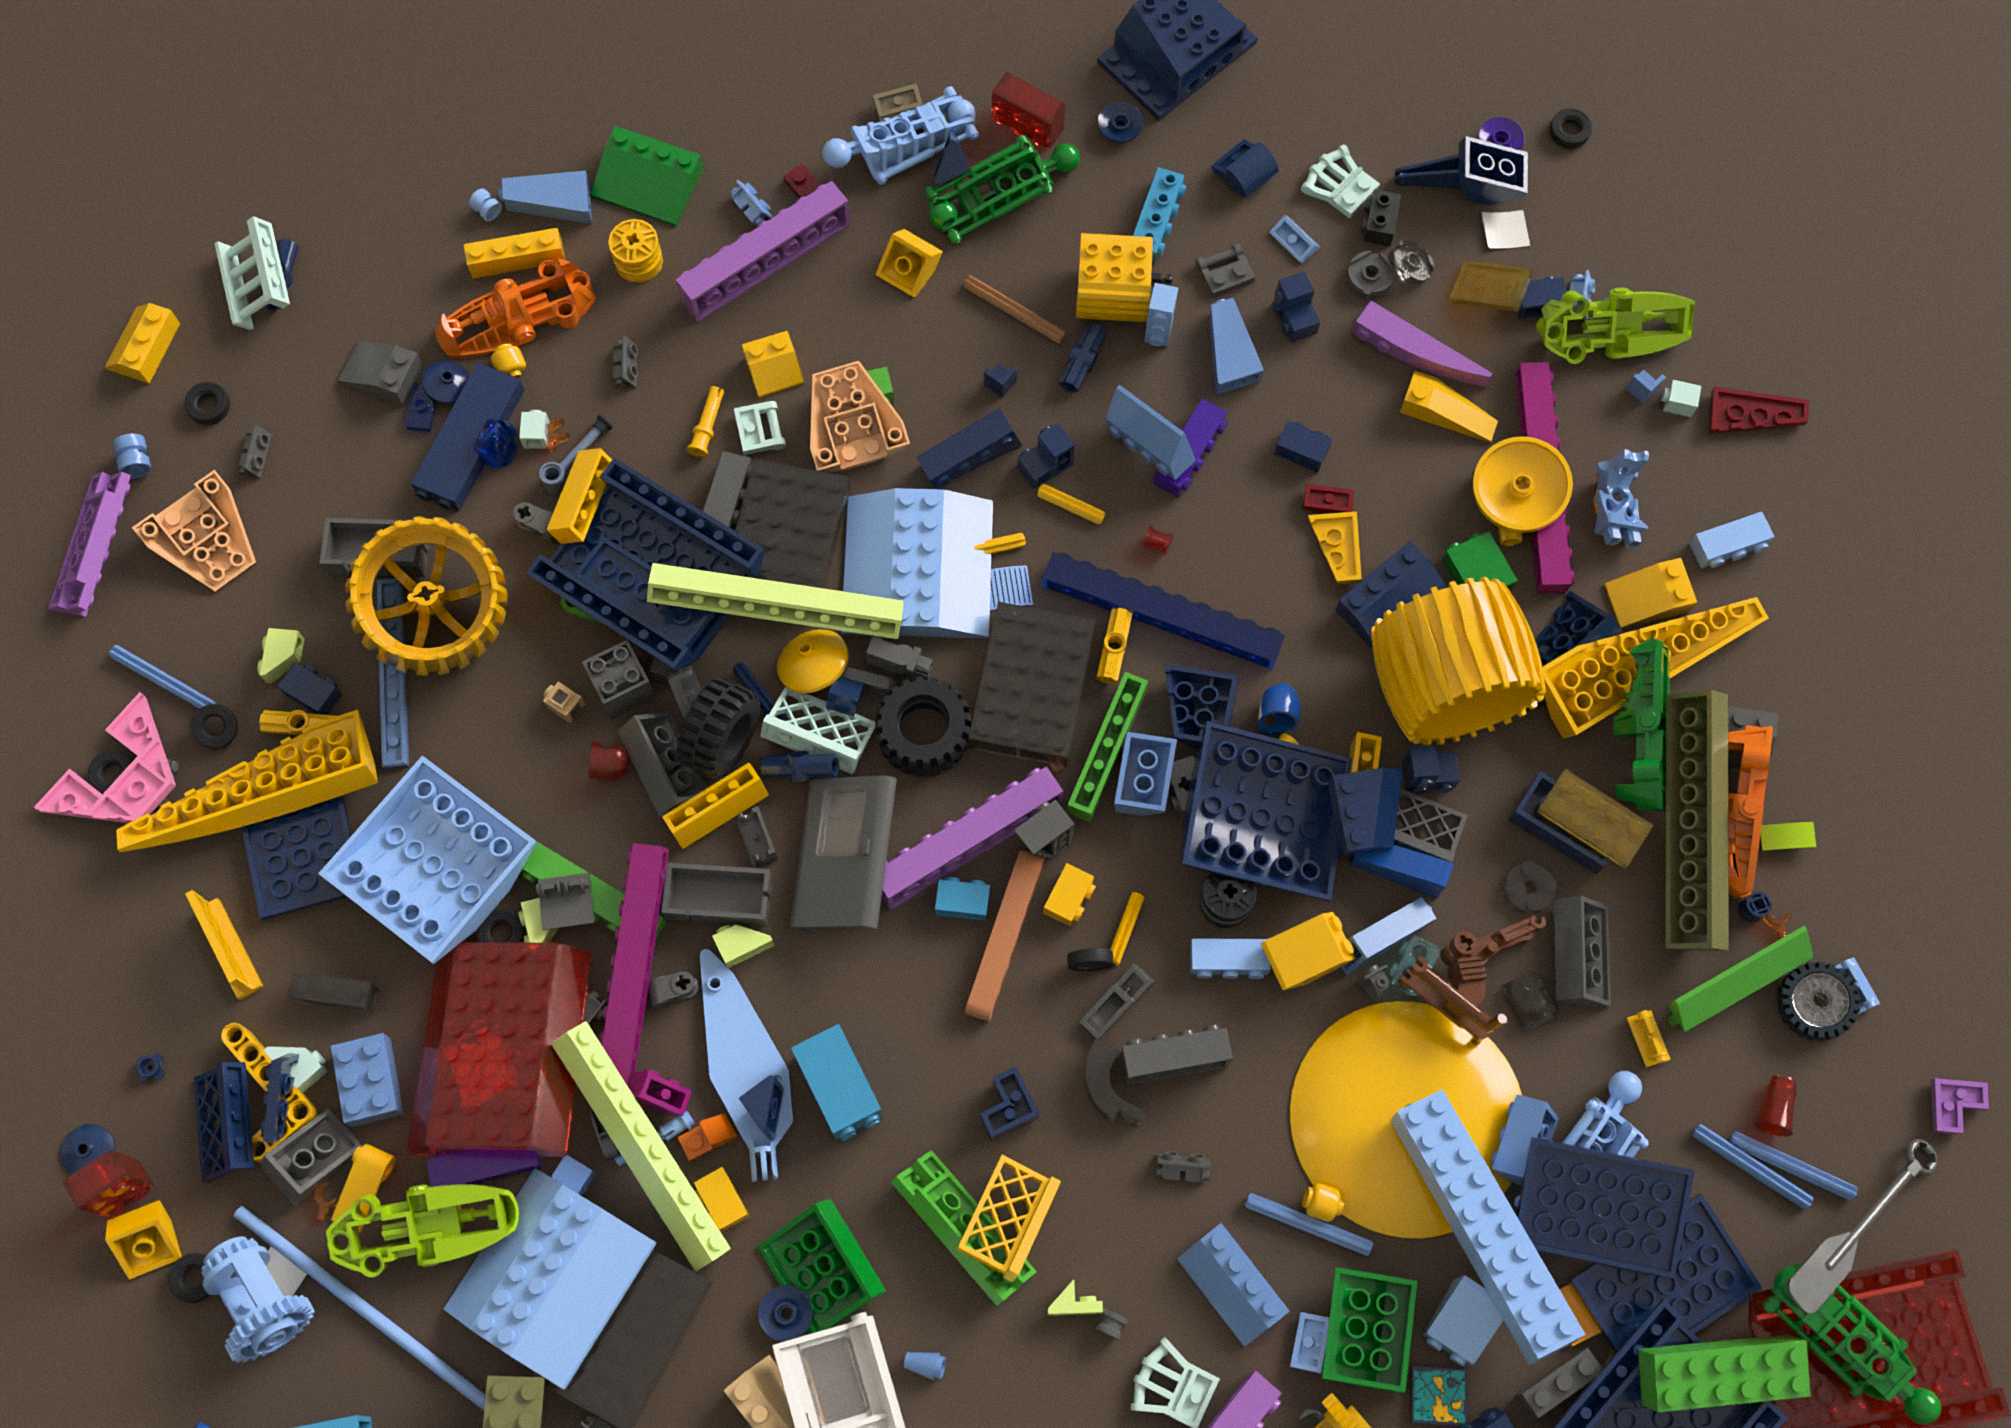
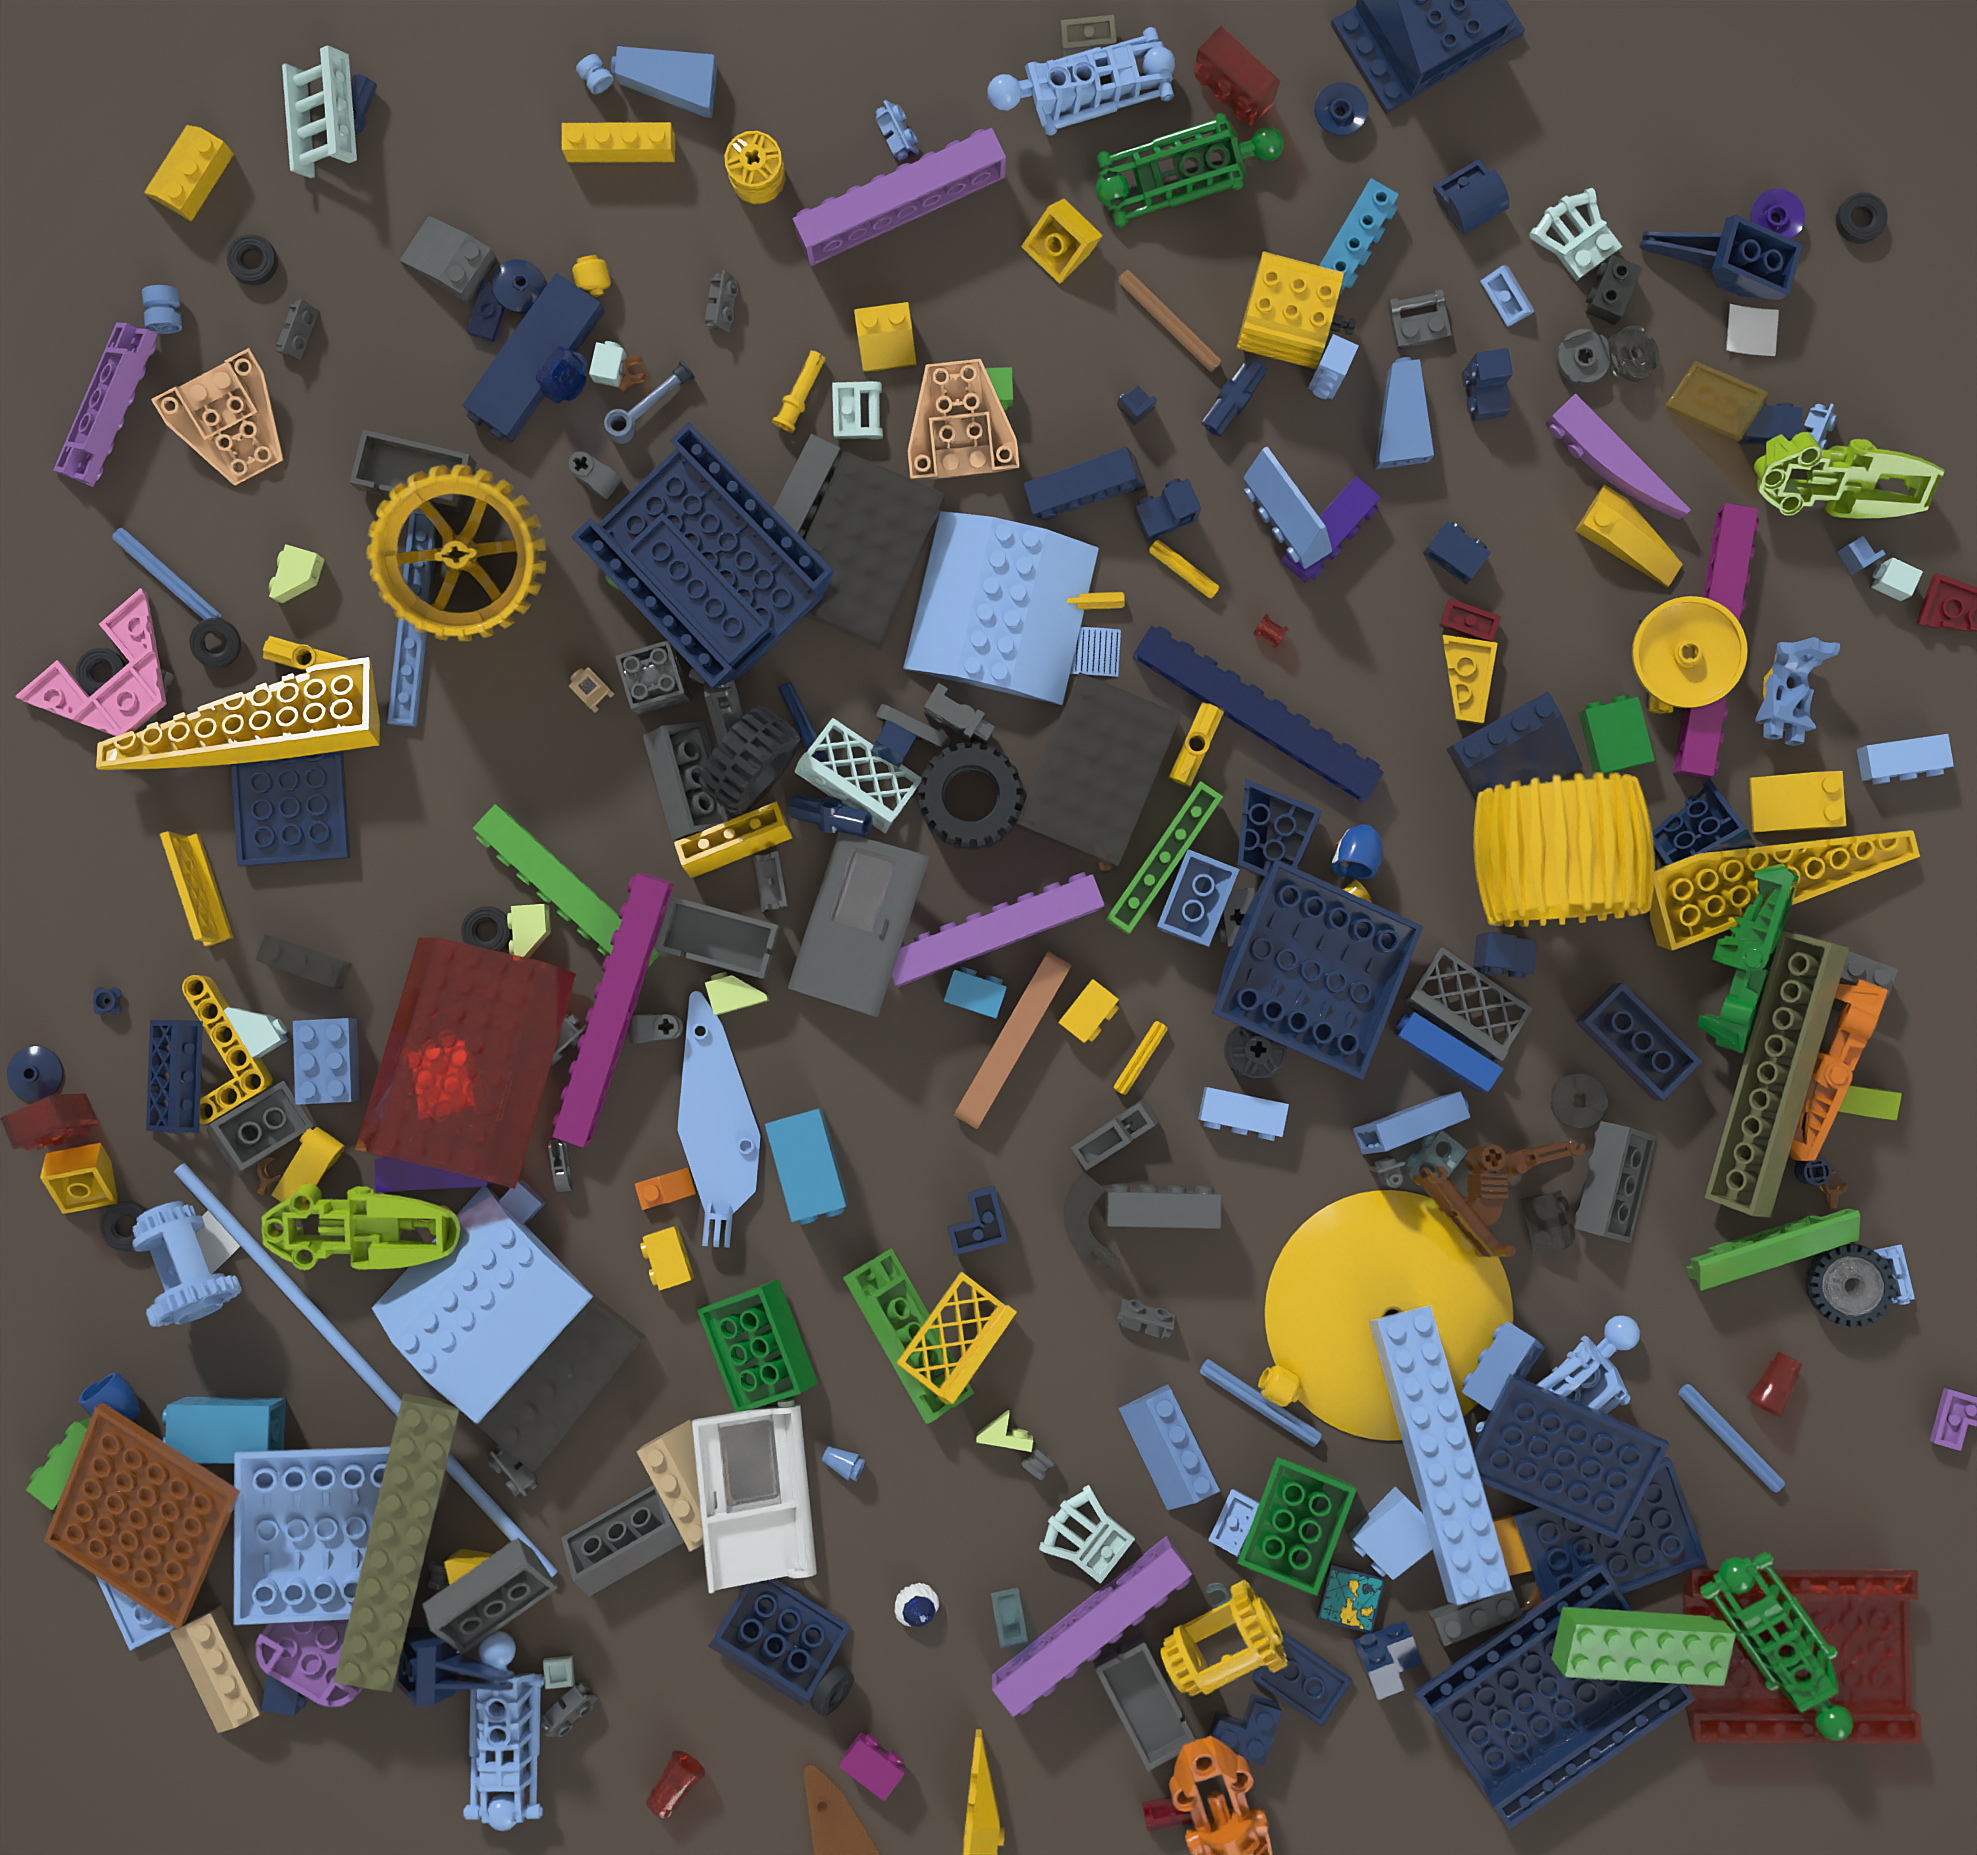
camera: 10 degrees right, 15 degrees up
(274, 1099) = (227, 1070): dark blue wing -> none
(309, 689) = (322, 622): dark blue brick -> none
(430, 861) = (421, 844): light blue slope -> none
(516, 310) = (608, 214): orange piece -> none
(565, 901) = (558, 915): dark grey hinge -> none
(579, 497) = (644, 457): yellow brick -> none
(608, 763) = (626, 770): clear red helmet -> none
(640, 1146) = (593, 1191): yellowish green brick -> none
(646, 176) = (783, 73): green slope -> none
(659, 1093) = (621, 1139): magenta brick -> none
(668, 1131) = (624, 1175): light blue pin -> none
(764, 1104) = (726, 1178): dark blue slope -> none
(771, 1313) = (700, 1391): dark blue dish -> none
(774, 601) = (834, 631): yellowish green brick -> none
(801, 181) = (960, 116): dark red plate -> none
(812, 661) = (873, 706): yellow dish -> none
(952, 160) = (1135, 125): dark blue slope -> none
(1047, 831) = (1076, 946): dark grey wedge -> none
(1090, 959) = (1095, 1087): black tyre -> none
(1308, 951) = (1326, 1128): yellow slope -> none
(1365, 752) = (1439, 924): yellow brick -> none
(1365, 809) = (1423, 990): dark blue wedge -> none
(1595, 818) = (1667, 1047): clear yellow plate -> none
(1648, 1038) = (1660, 1285): yellow hinge -> none
(1793, 1166) = (1774, 1446): medium blue axle -> none
(1835, 1255) = (1791, 1557): piece -> none

